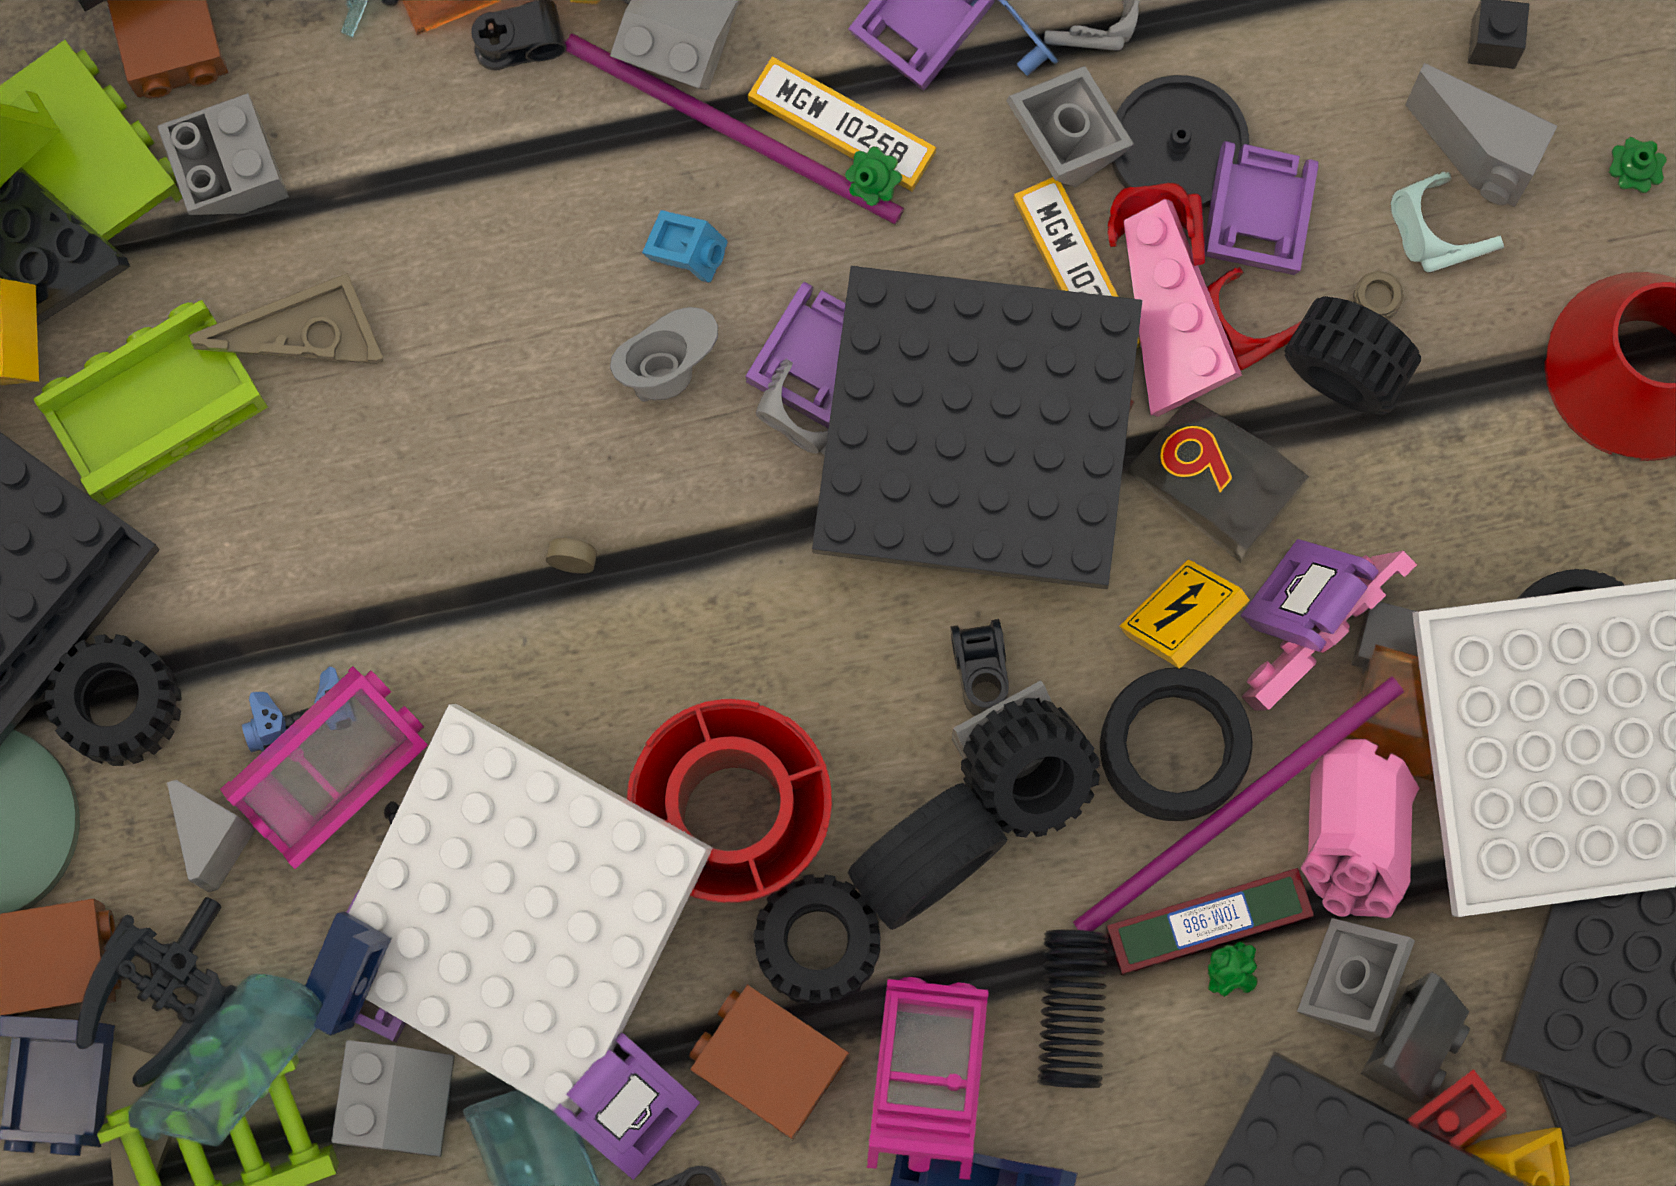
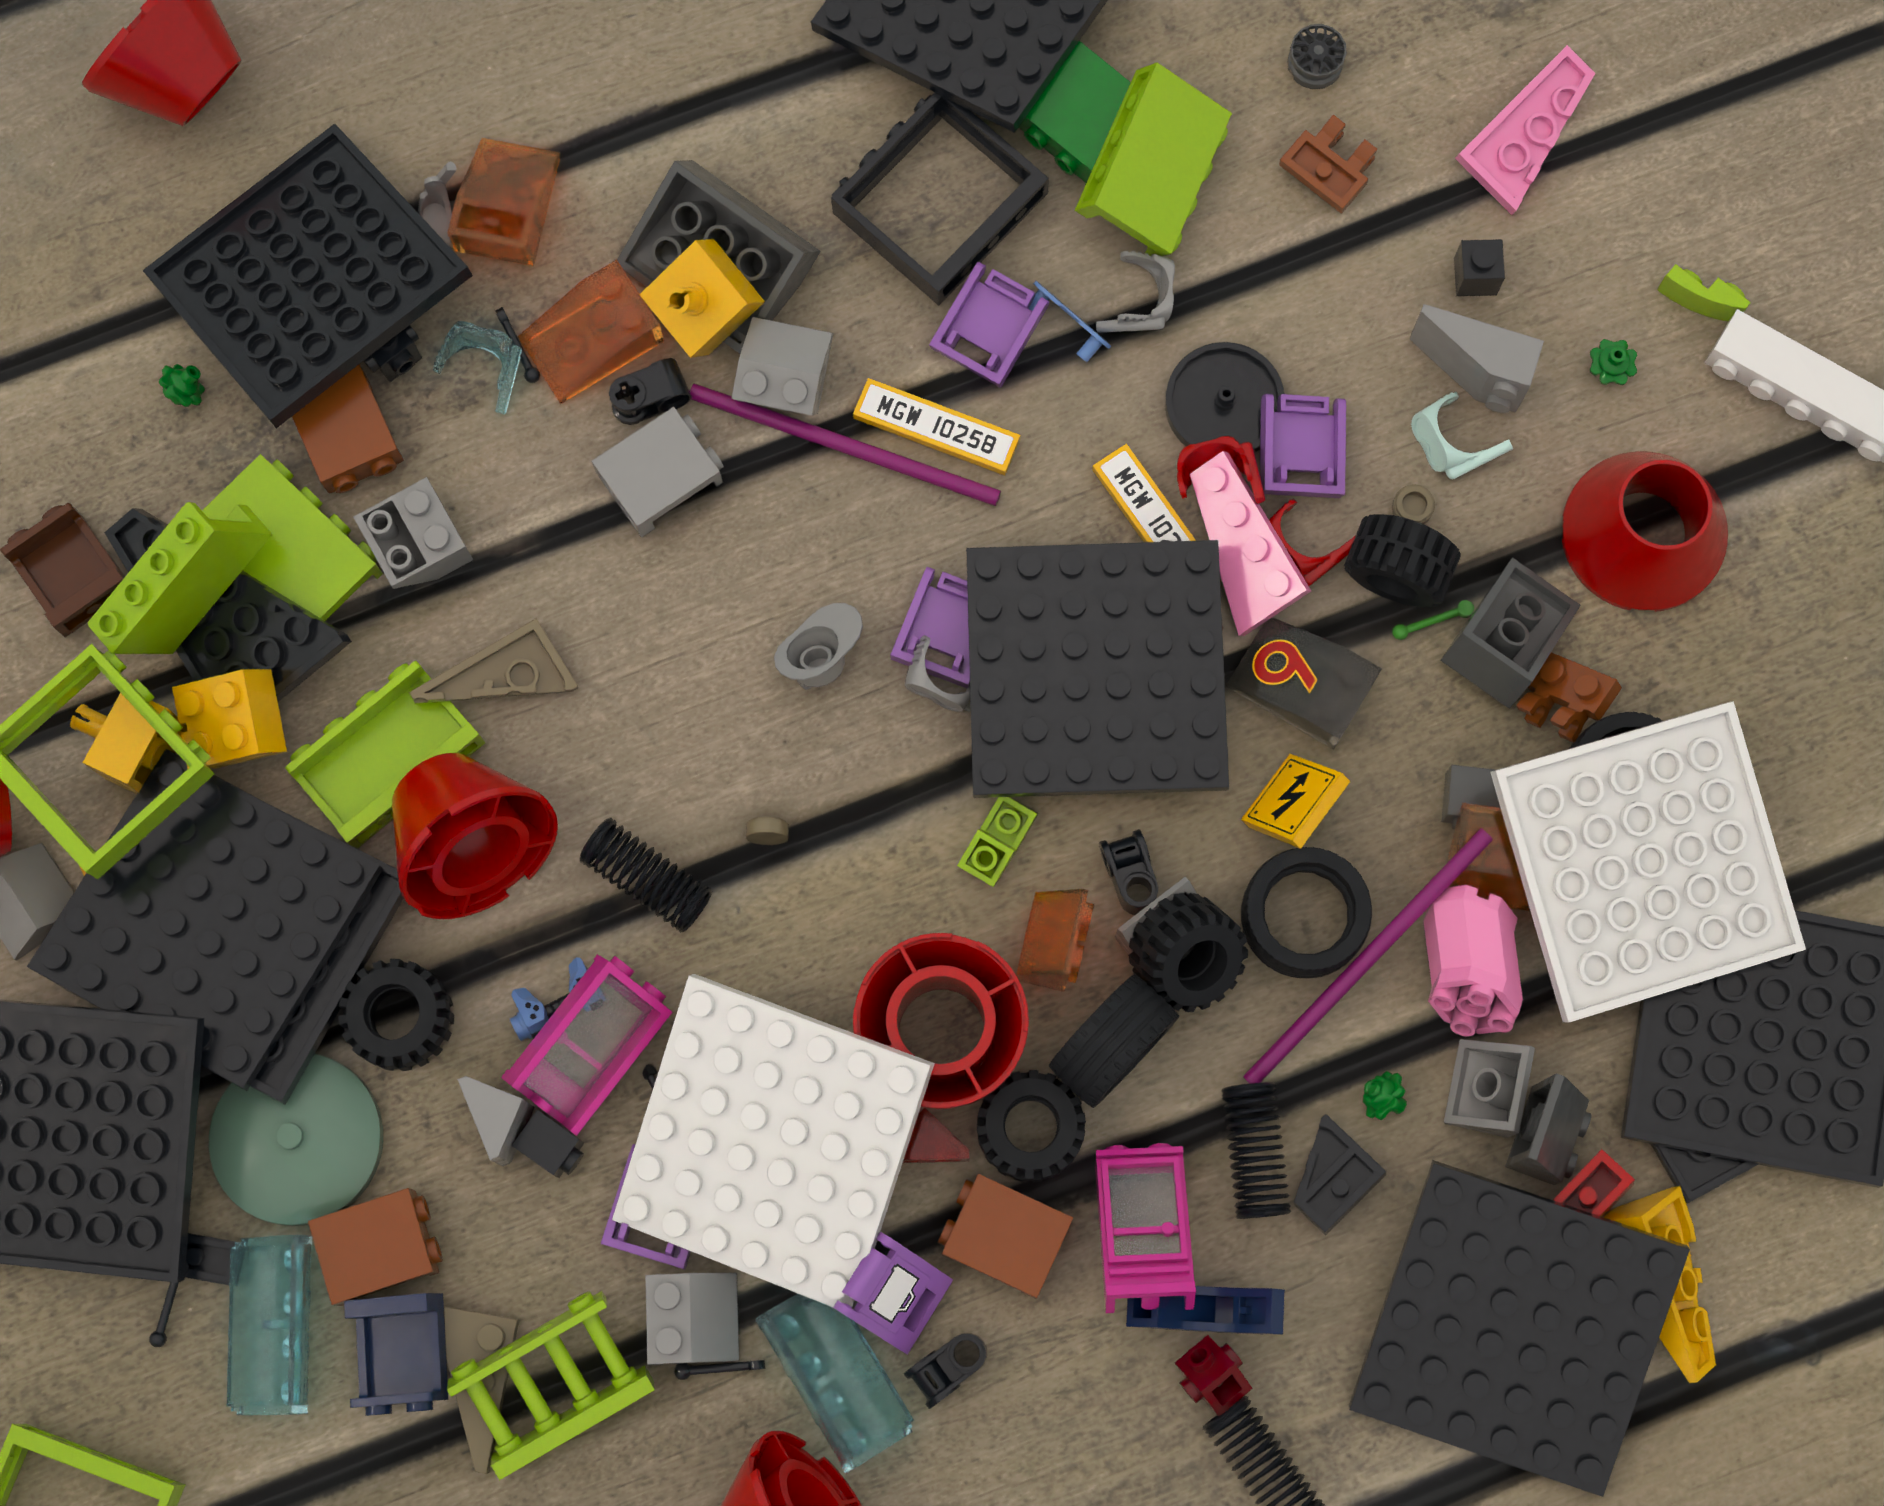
camera: 10 degrees left, 0 degrees up
(171, 968) = (484, 1236): black bar -> none
(224, 508) = (466, 835): none -> red cone
(229, 1062) = (551, 1309): clear light blue container -> none
(263, 875) = (549, 1145): none -> black brick
(345, 971) = (633, 1217): dark blue panel -> none
(374, 1158) = (683, 1370): none -> black hinge
(463, 637) = (692, 901): none -> black piece
(514, 123) = (657, 469): none -> light grey panel
(686, 244) = (821, 550): dark azure bracket -> none
(700, 941) = (934, 1142): none -> clear red slope
(834, 606) = (997, 840): none -> lime slope
(873, 176) = (971, 467): green plant -> none
(875, 732) = (1050, 945): none -> clear orange slope
(1071, 126) = (1132, 400): light grey slope -> none
(1160, 1054) = (1335, 1177): none -> black wing
(1209, 921) = (1357, 1058): tile -> none
(1274, 680) = (1417, 794): bright pink wing -> none
(1308, 590) = (1396, 765): medium lavender container -> none
(1418, 425) = (1464, 610): none -> bright green hinge
(1467, 459) = (1511, 633): none -> dark grey slope
(1529, 531) = (1576, 688): none -> dark orange plate

